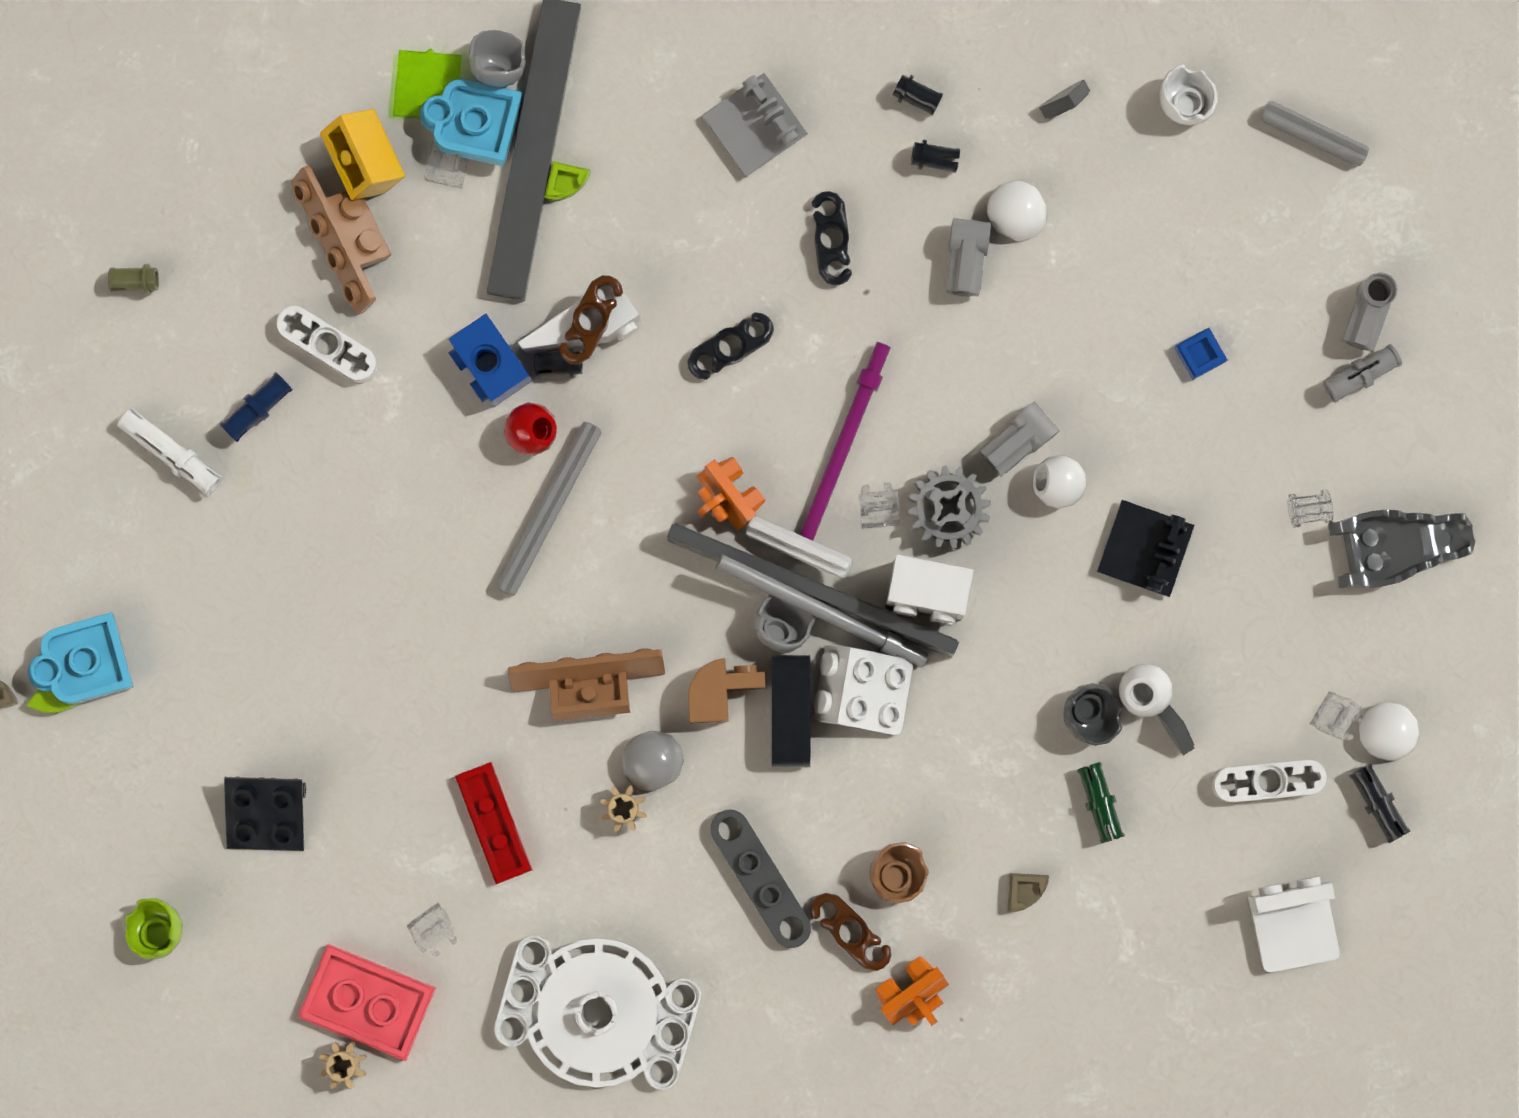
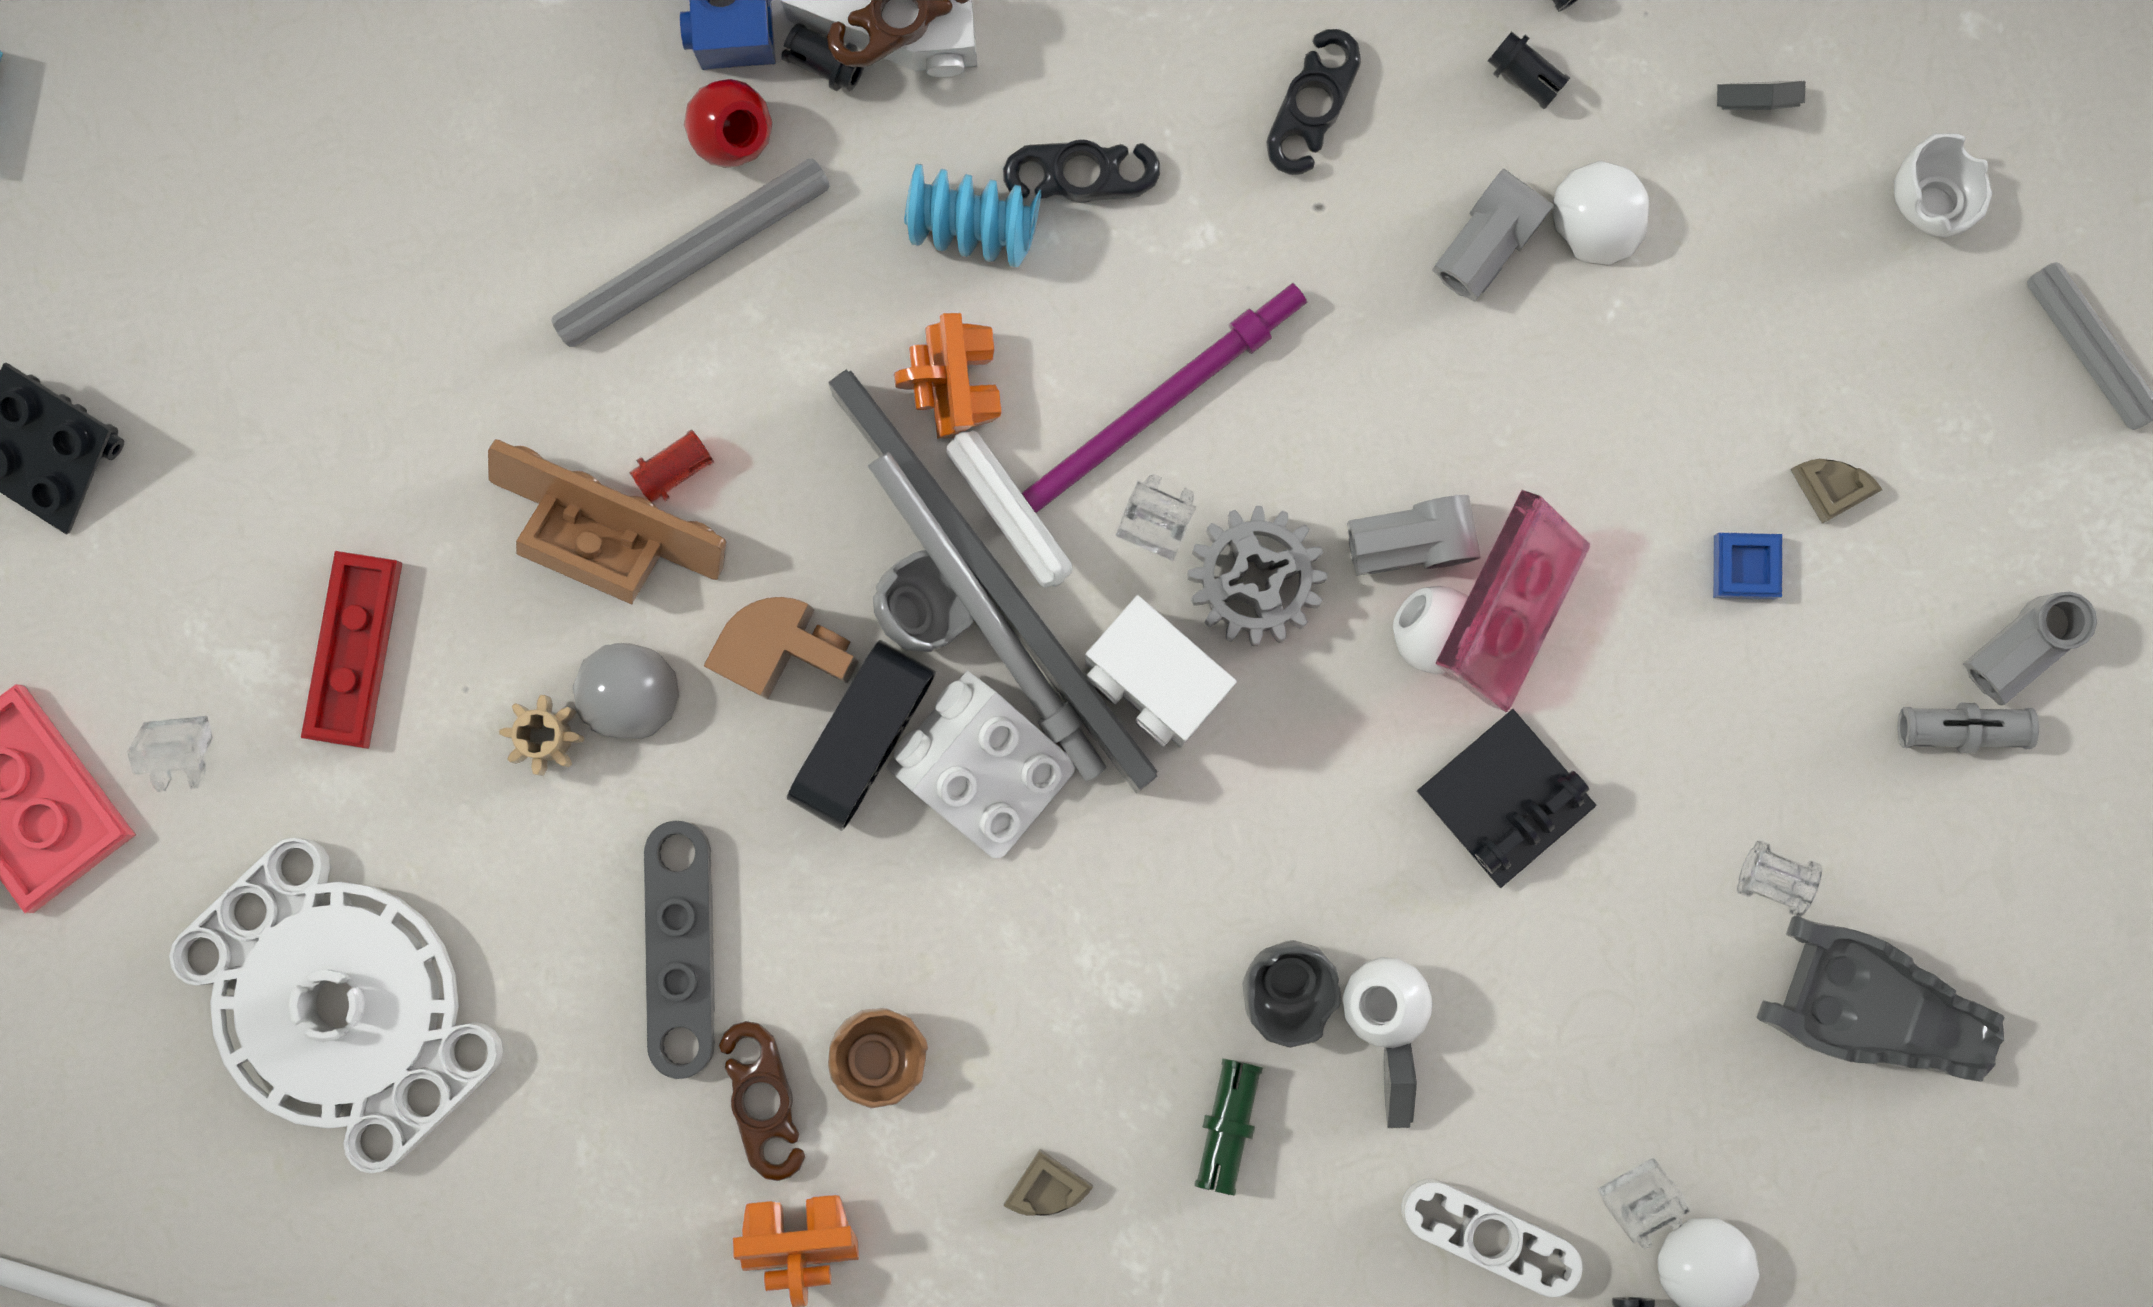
camera: 30 degrees right, 0 degrees up
(606, 628) = (671, 466): none -> clear red pin
(688, 404) = (970, 217): none -> medium azure piece
(1091, 444) = (1514, 602): none -> clear pink tile
(1221, 285) = (1833, 486): none -> dark tan tile

